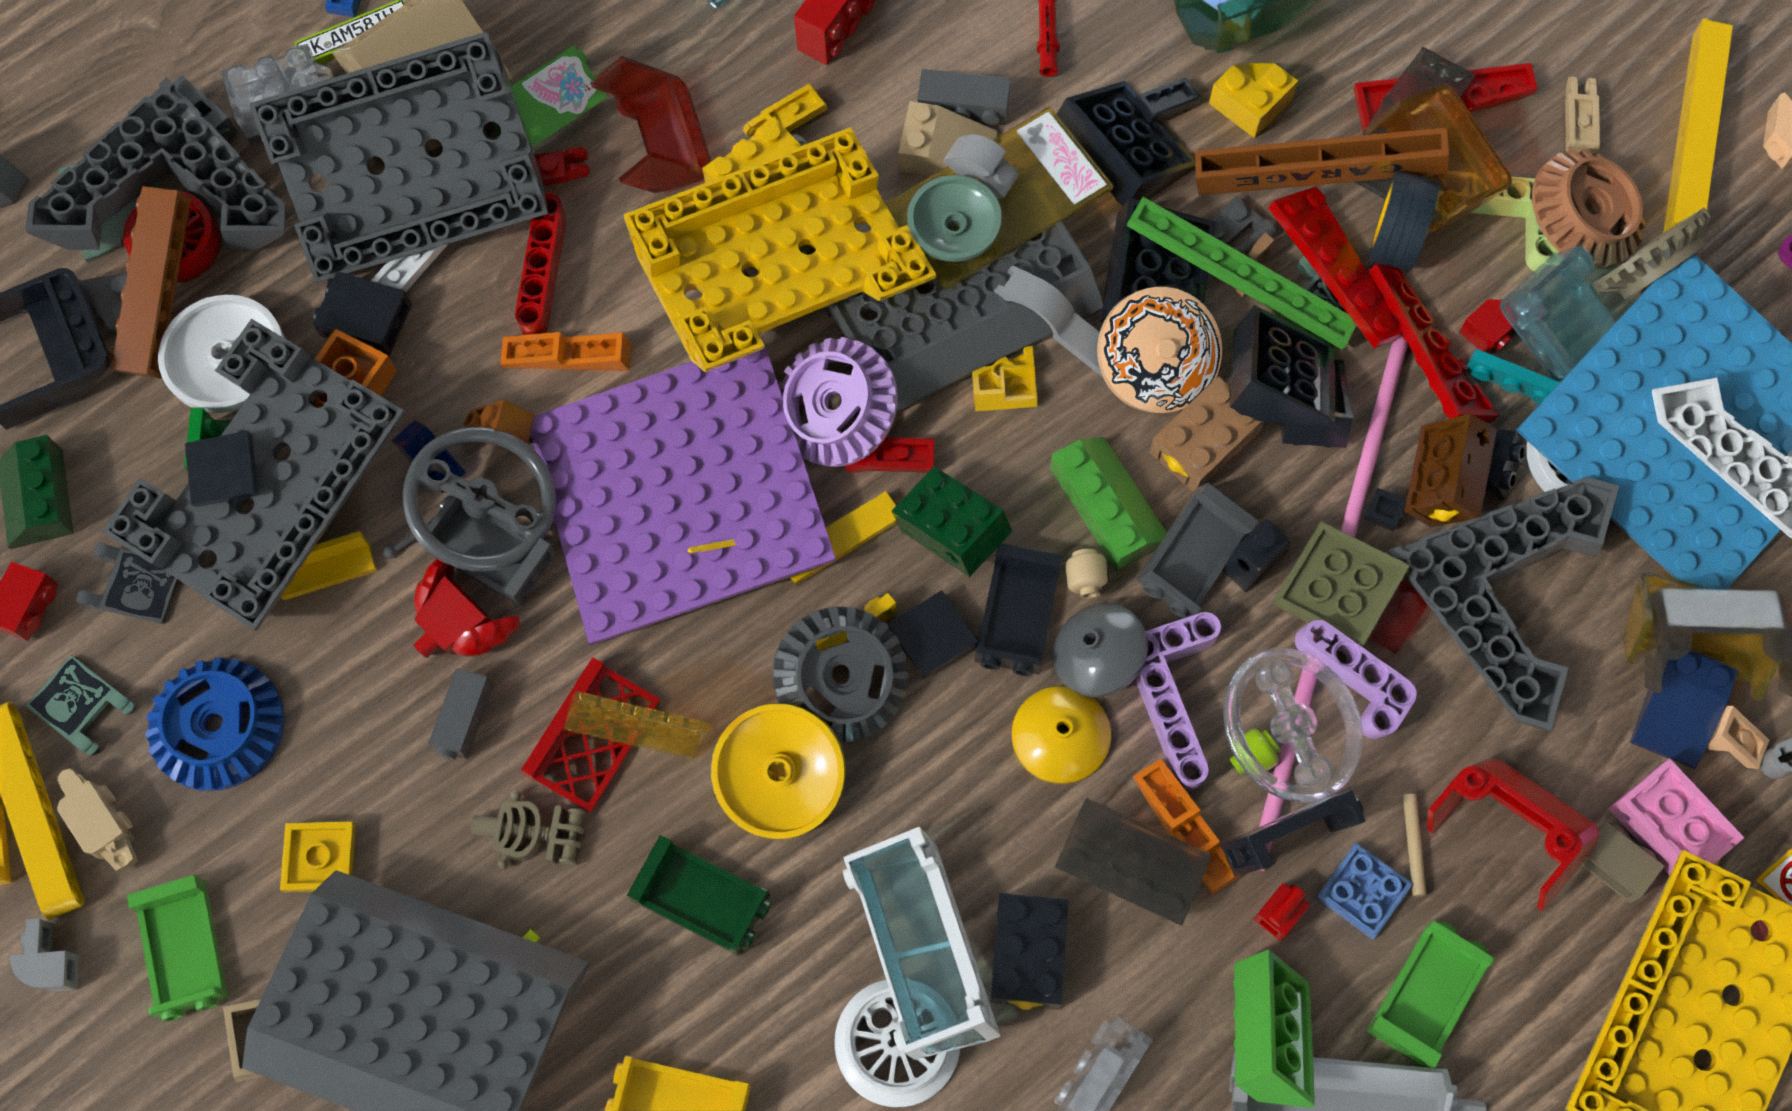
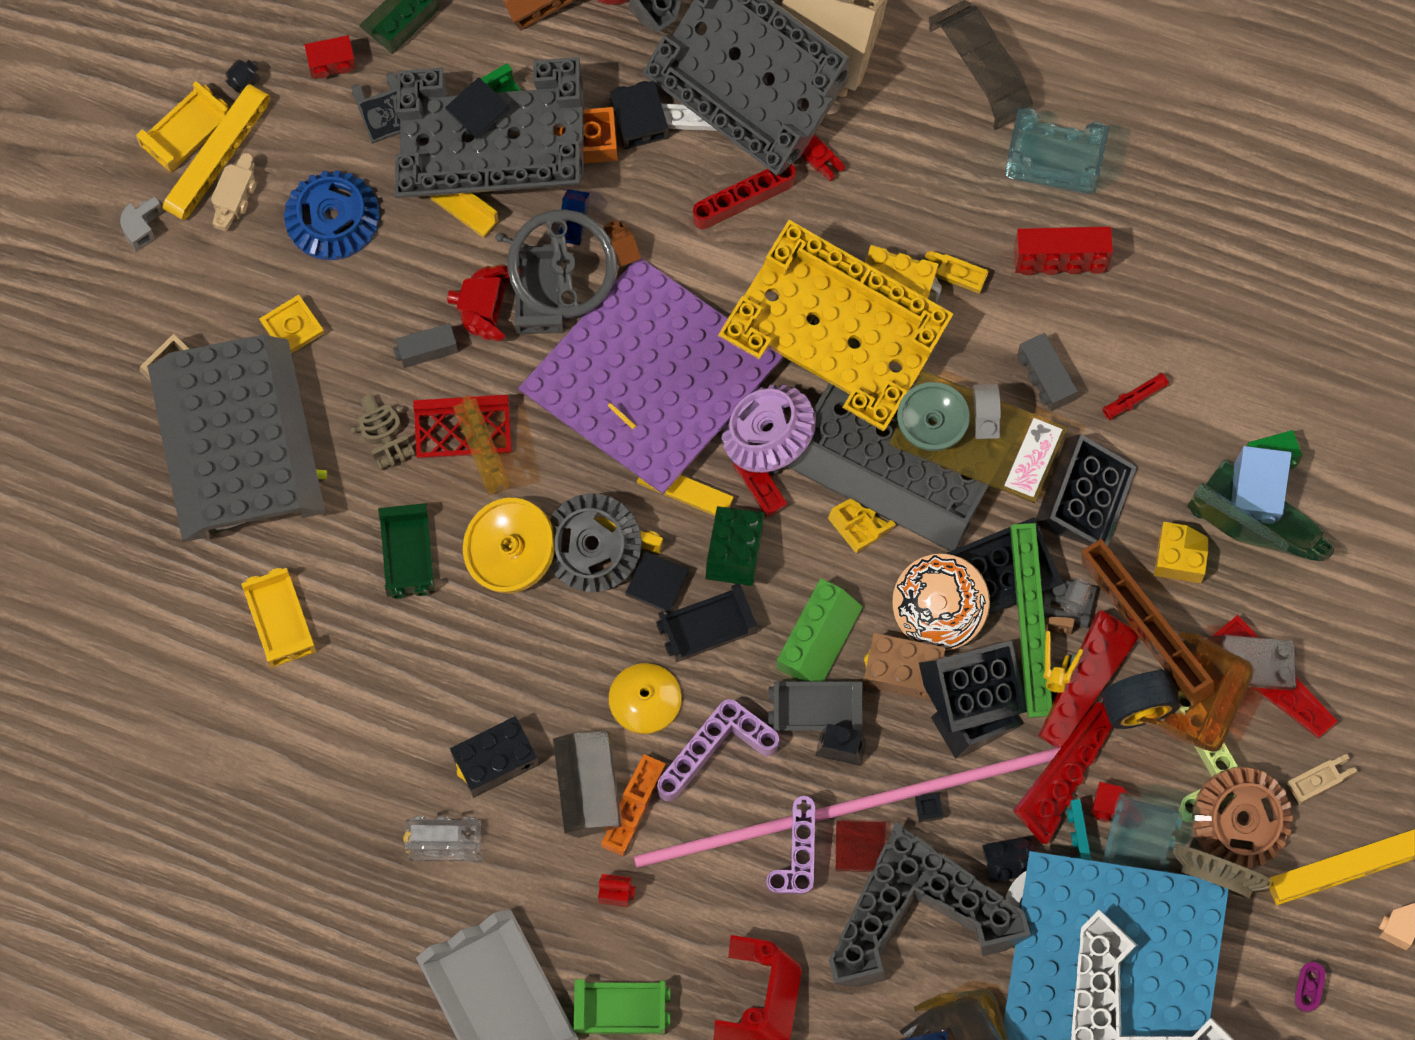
camera: 55 degrees right, 0 degrees up
(74, 700) = (294, 129): flag -> none
(179, 947) = (193, 288): bright green panel -> none
(199, 342) = (556, 37): white dish -> none
(555, 94) = (862, 123): panel -> none
(555, 351) = (698, 250): orange slope -> none
(666, 124) = (896, 207): clear red windscreen -> none
(863, 1081) = (407, 745): white piece -> none
(921, 945) = (457, 691): clear light blue windscreen -> none
(930, 135) = (1005, 368): tan slope -> none
(1056, 310) = (919, 517): light grey piece -> none
(1087, 573) = (758, 649): tan head -> none
(1108, 662) = (711, 686): dark grey dish -> none
(1167, 100) = (1139, 502): black plate -> none
(1242, 215) = (1076, 597): none -> clear brick
(1249, 851) = (699, 878): black panel -> none
(1263, 749) = (706, 818): lime head -> none
(1273, 1032) = (533, 920): bright green slope -> none
(1293, 725) = (729, 835): clear piece -> none
(1324, 286) = (1058, 676): none -> yellow plant
(1341, 583) = (852, 806): olive plate -> none
(1364, 891) = (662, 934): medium blue tile -> none
(1414, 845) = (711, 950): tan bar -> none
(1450, 471) = (977, 829): reddish brown piece -> none

